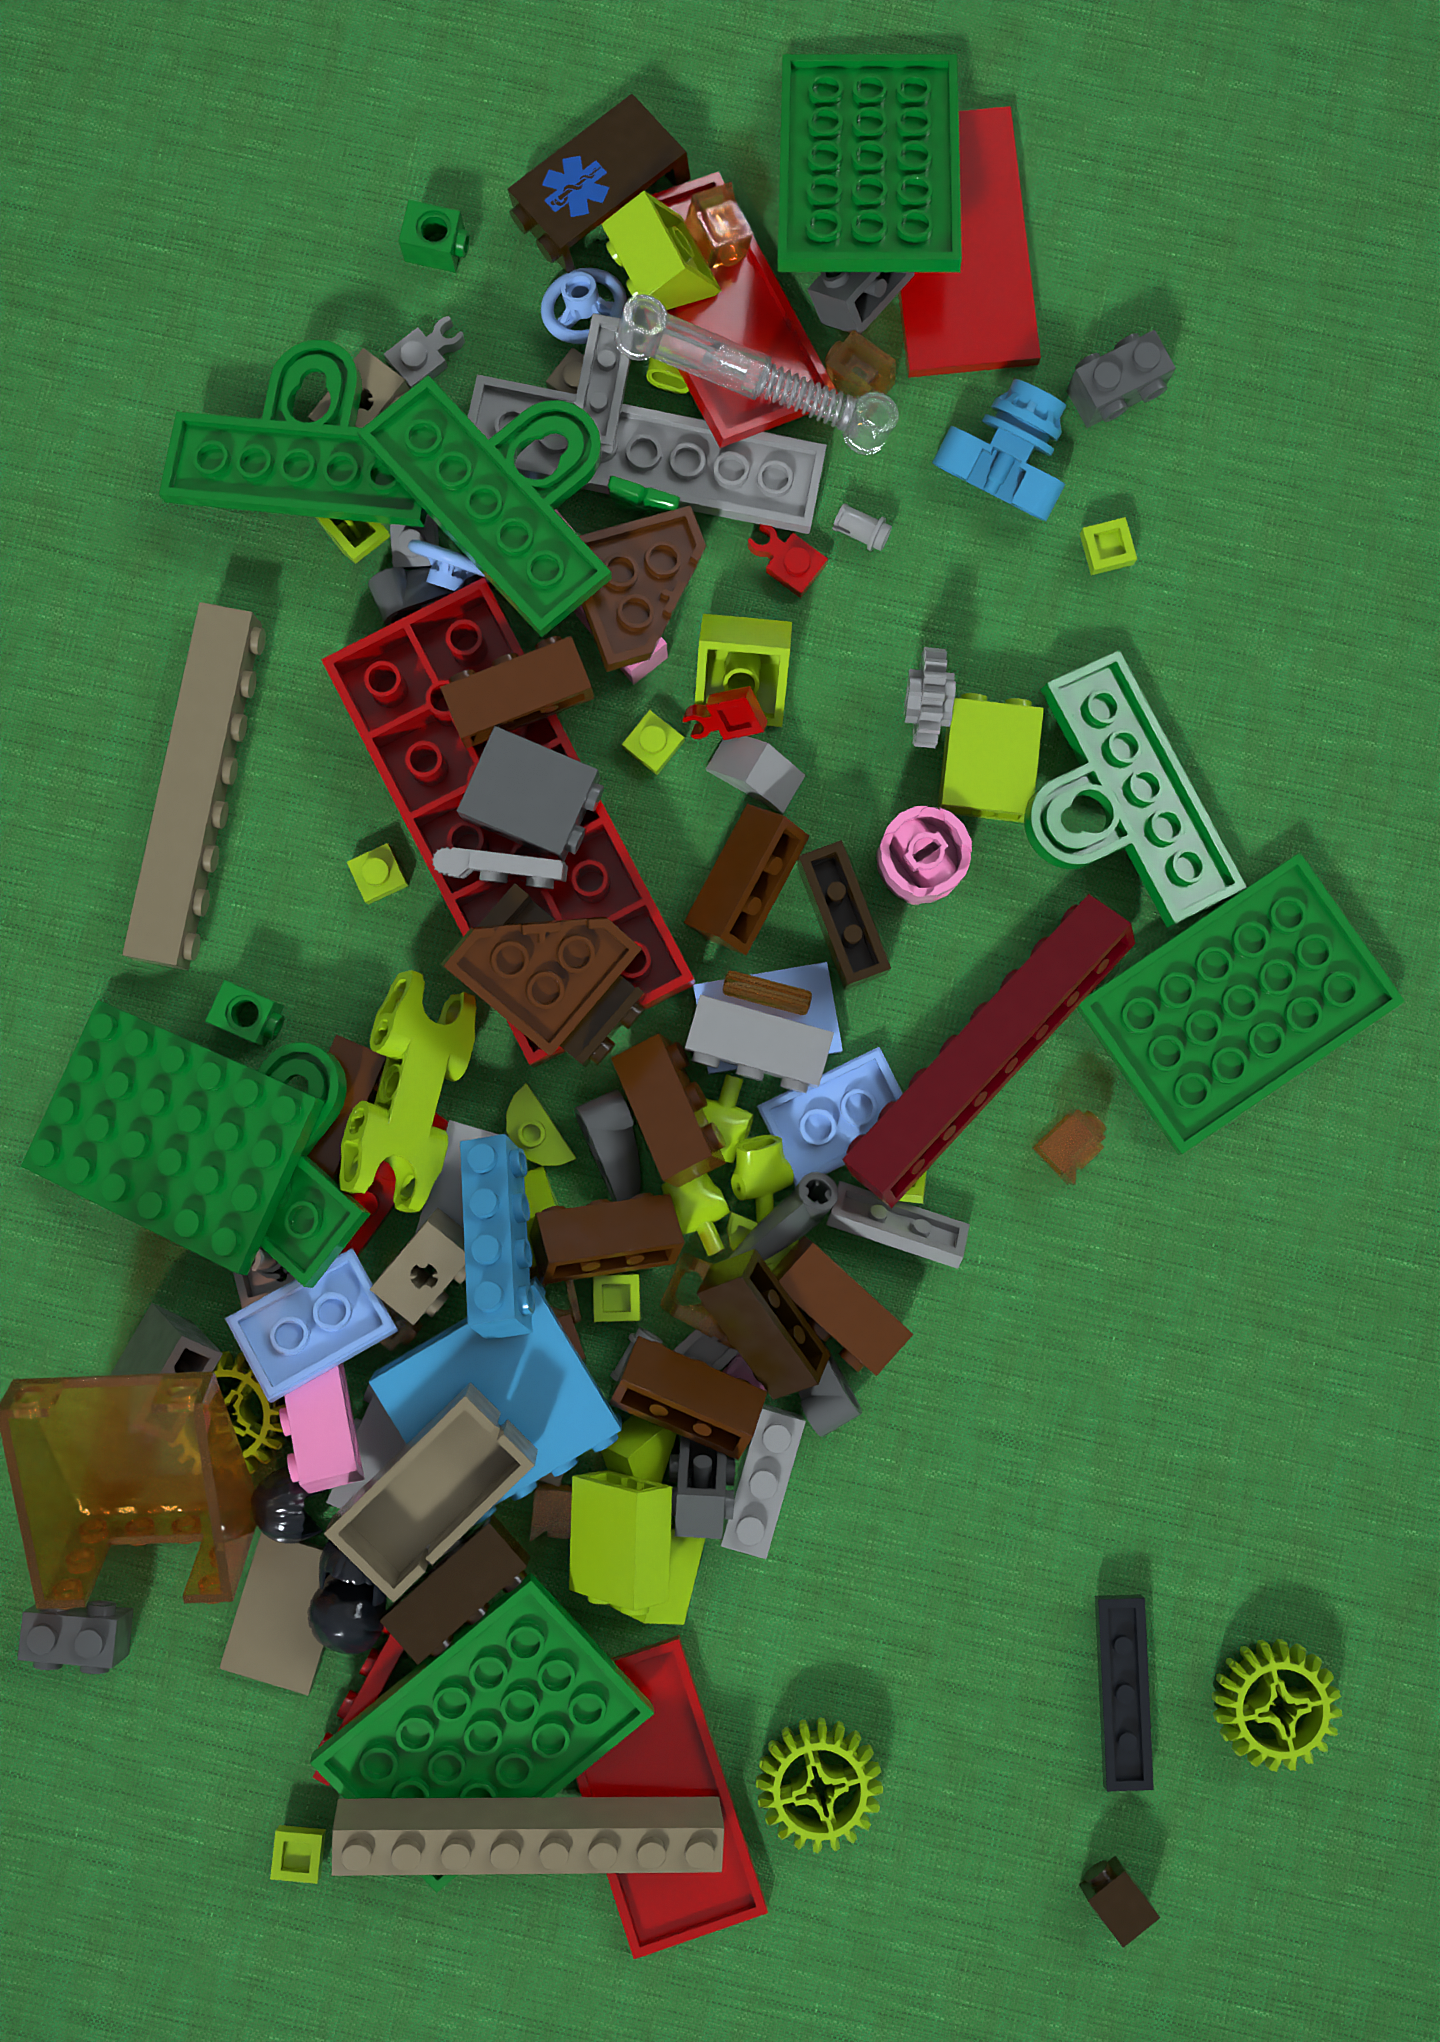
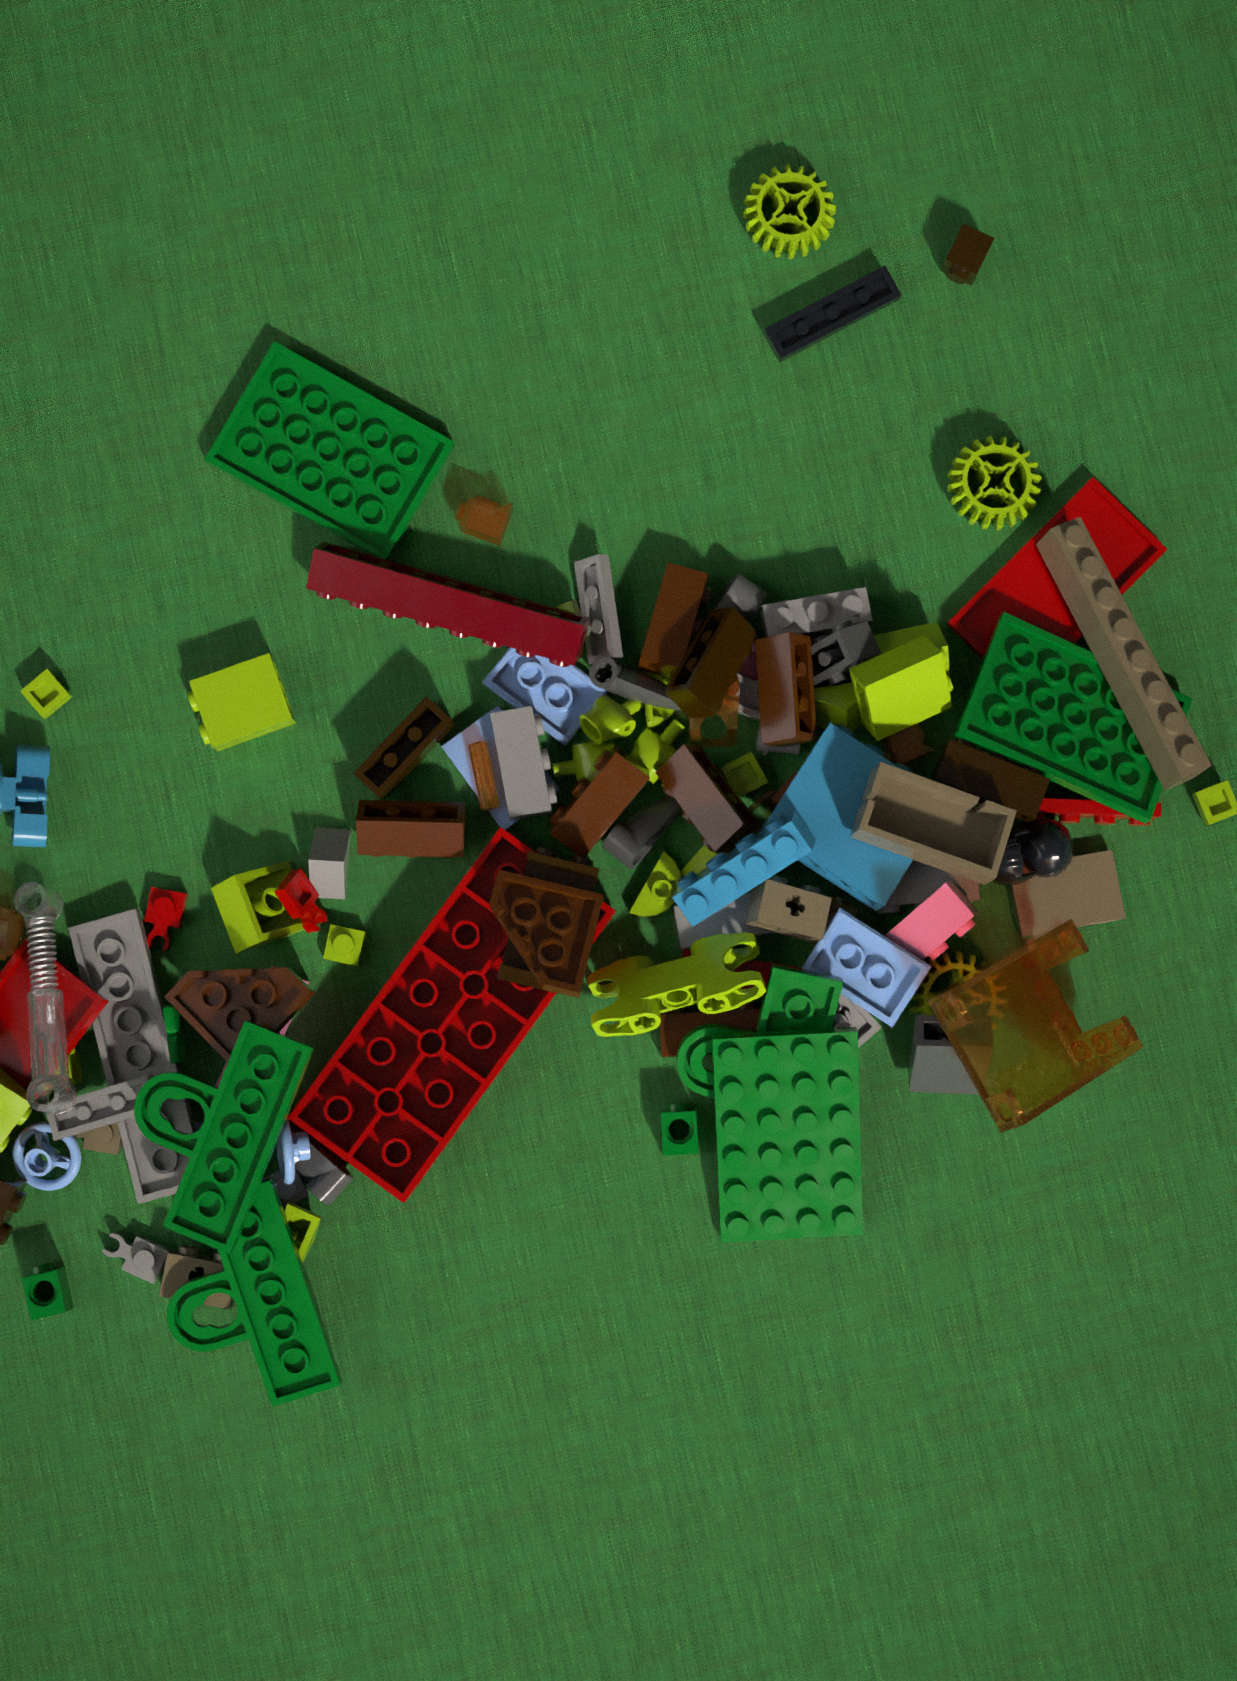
camera: 120 degrees left, 0 degrees up
(83, 1636) = (1155, 1026): dark grey brick -> none
(194, 787) = (536, 1253): dark tan brick -> none
(280, 1509) = (996, 928): black hair -> none
(377, 873) = (534, 1092): lime plate -> none
(497, 866) = (490, 999): light grey hinge -> none
(517, 690) = (358, 1048): reddish brown brick -> none
(531, 795) = (428, 1000): dark grey brick -> none
(862, 527) = (116, 873): light grey pin -> none
(924, 854) = (333, 714): bright pink brick -> none
(929, 697) = (220, 763): light grey gear -> none
(1139, 786) = (213, 587): plate -> none

